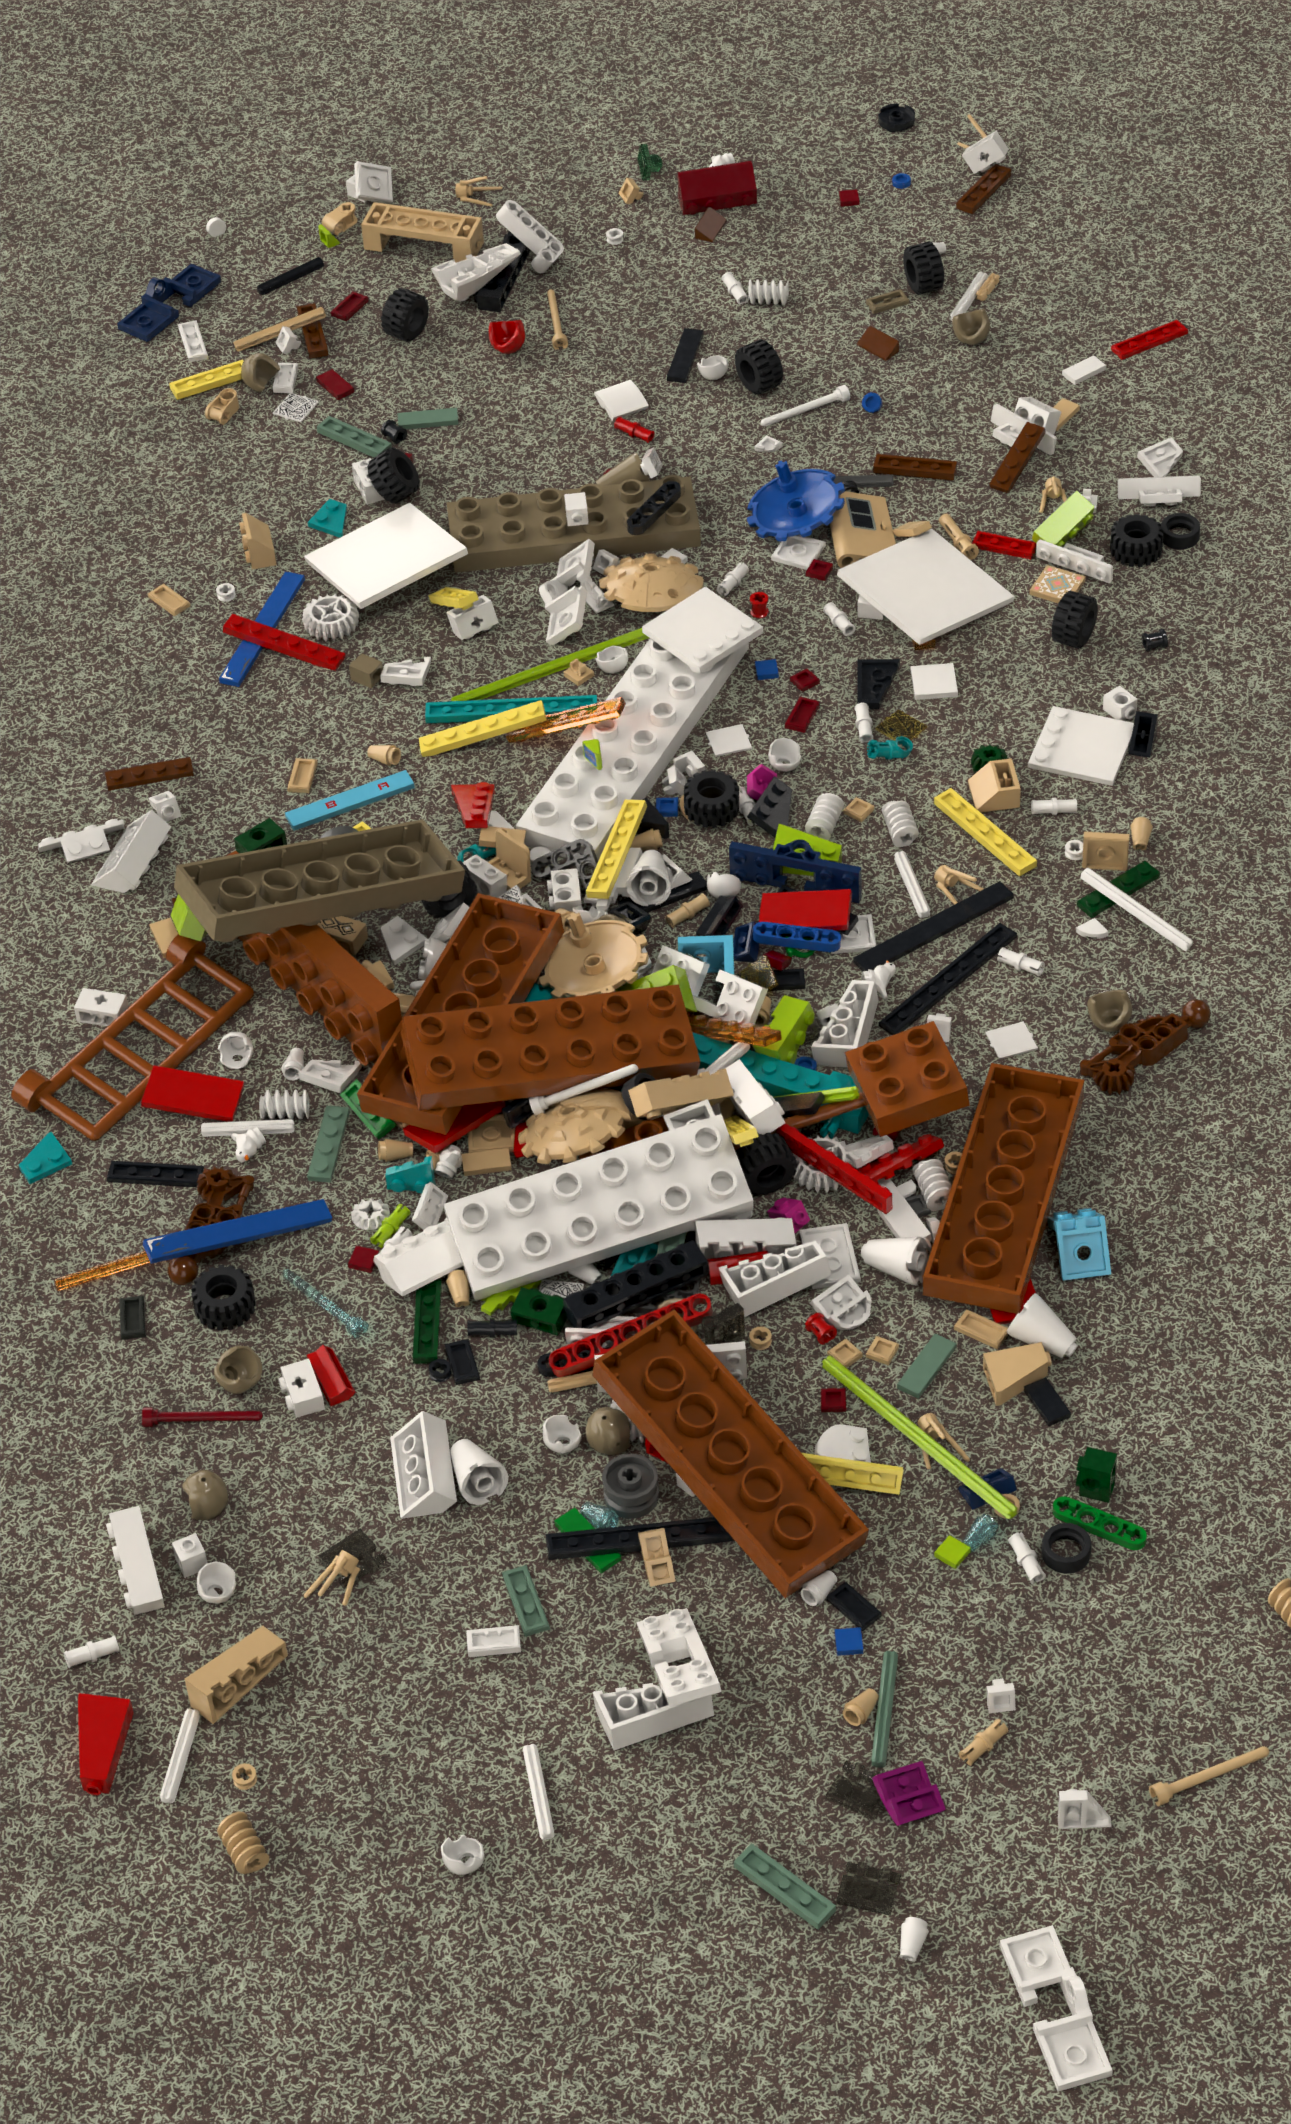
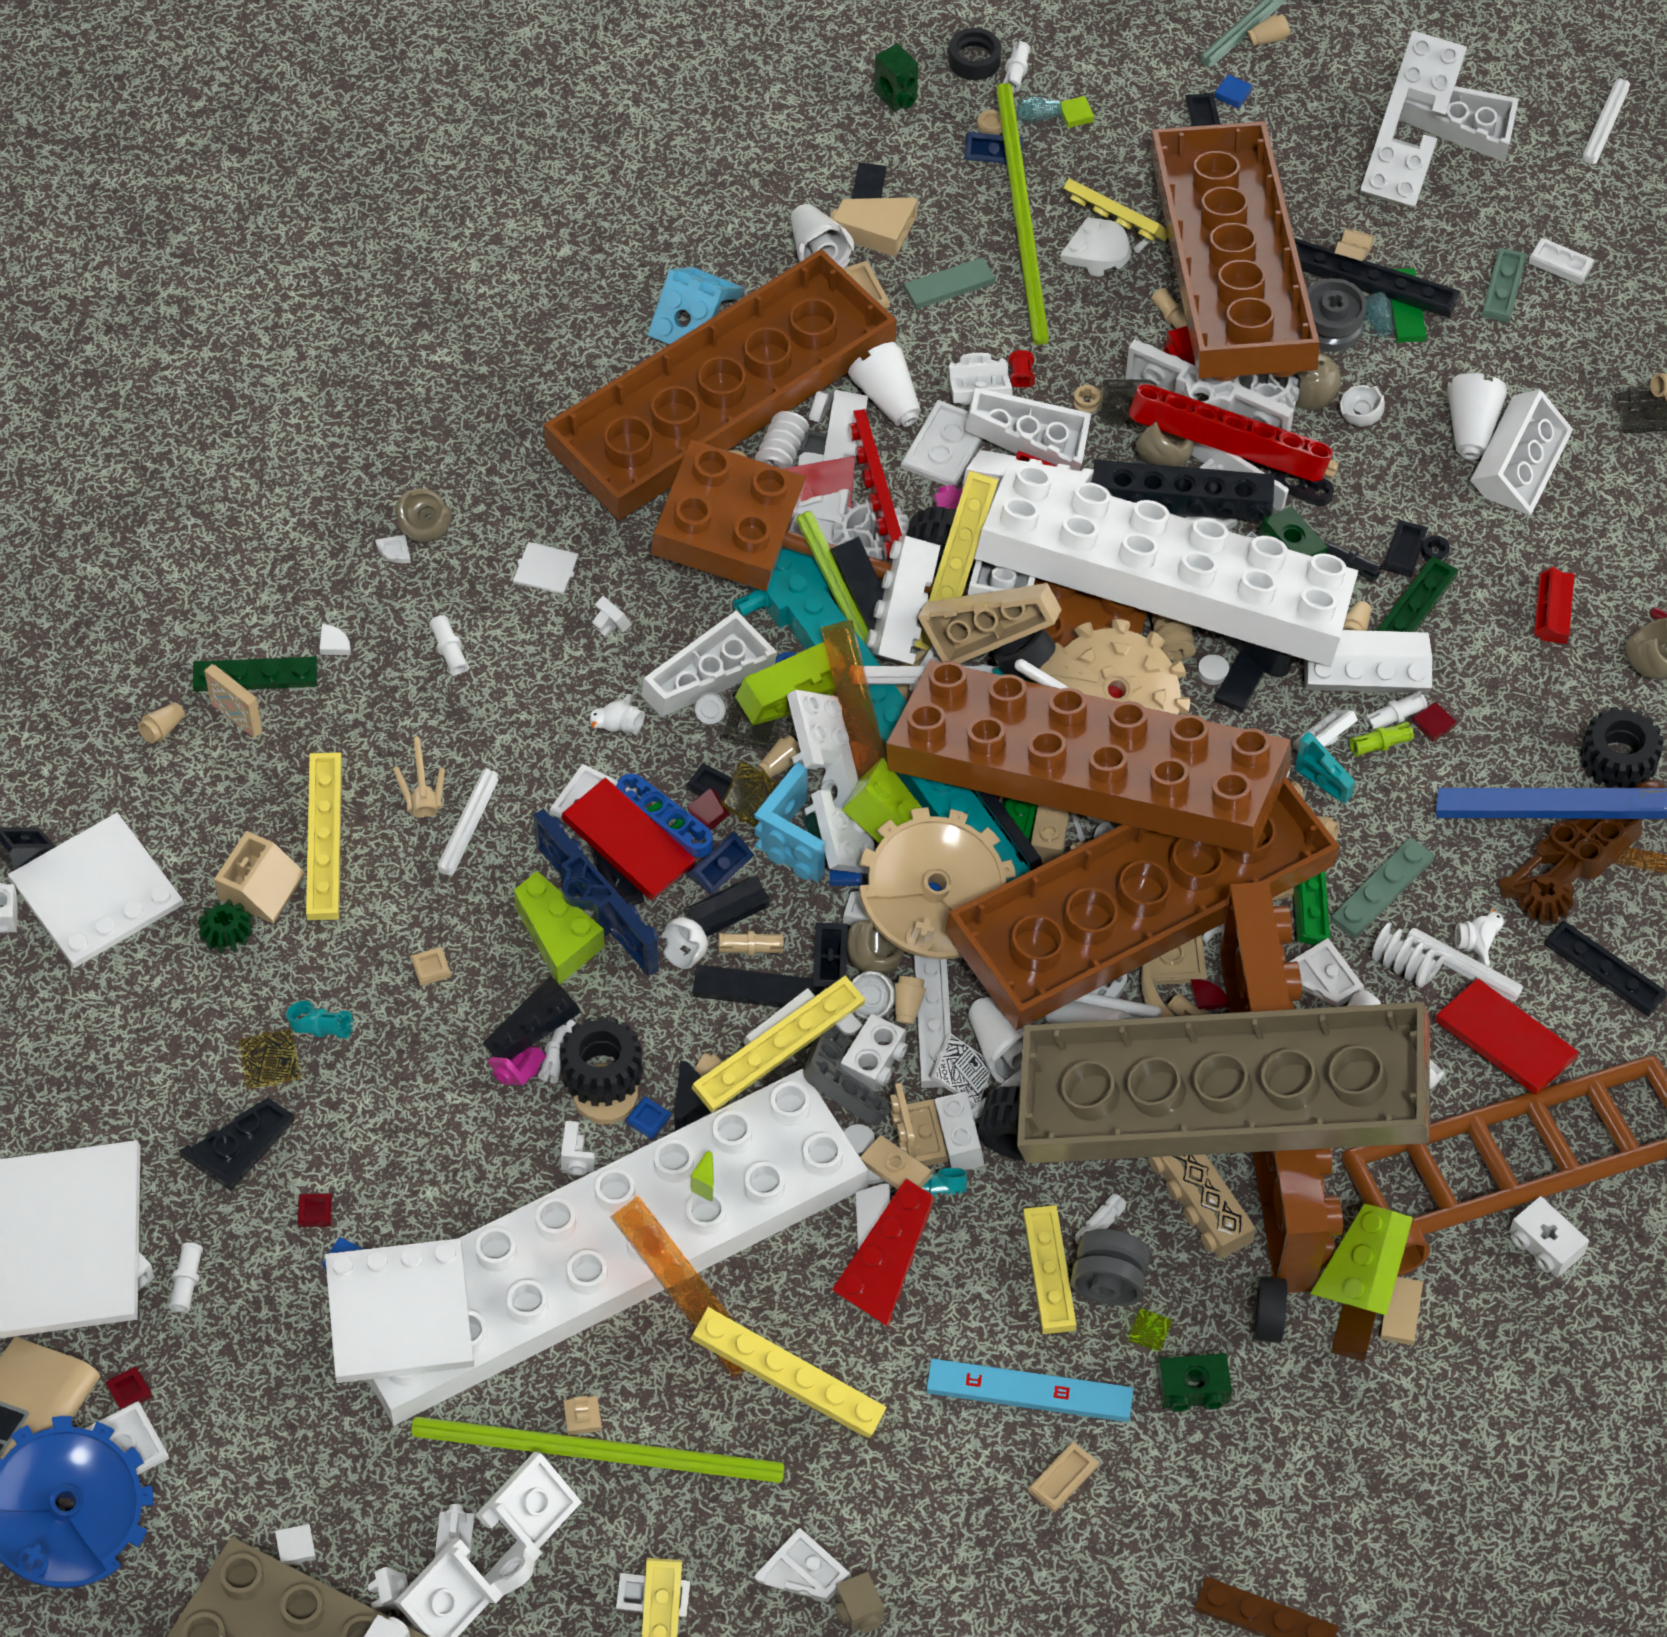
camera: 150 degrees left, 10 degrees up
(83, 843) = (1425, 1543): white bracket -> none
(133, 853) = (1375, 1473): white slope -> none
(165, 805) = (1280, 1537): white bracket -> none
(302, 1388) = (1595, 603): white brick -> none
(353, 1324) = (1493, 645): clear light blue piece -> none
(362, 1220) = (1396, 782): white gear -> none
(385, 754) = (935, 1434): tan cone -> none
(477, 709) = (718, 1405): teal plate -> none
(612, 659) = (526, 1385): white hair -> none
(639, 523) = (276, 1591): black beam -> none
(649, 880) = (766, 989): white cone -> none
(650, 582) = (401, 1511): tan piece -> none
(674, 781) = (608, 1139): white tile -> none
(677, 875) = (728, 1006): white slope -> none
(728, 740) = (487, 1177): white piece -> none
(732, 579) = (253, 1445): white pin -> none
(759, 605) = (257, 1359): red bush -> none
(784, 750) = (442, 1082): white hair -> none
(802, 714) = (367, 1156): dark red tile -> none
(824, 816) = (484, 965): white piece -> none
(833, 1400) = (1066, 302): dark red tile -> none
(845, 1353) = (1017, 338): tan tile -> none
(863, 722) = (310, 1085): white pin -> none
(882, 1350) = (978, 322): tan tile -> none
(900, 823) = (408, 901): white piece -> none
(931, 1425) = (1000, 219): tan plant -> none
(934, 681) = (166, 1101): white tile -> none
(934, 927) = (499, 750): black tile -> none
(947, 979) = (540, 678): black tile -> none
(1053, 806) = (215, 820): white pin -> none
(1074, 855) = (258, 754): white bush -> none
(1101, 1520) = (925, 62): green beam -> none
(1136, 909) = (270, 623): white axle -> none
(1143, 1044) = (416, 471): reddish brown arm -> none

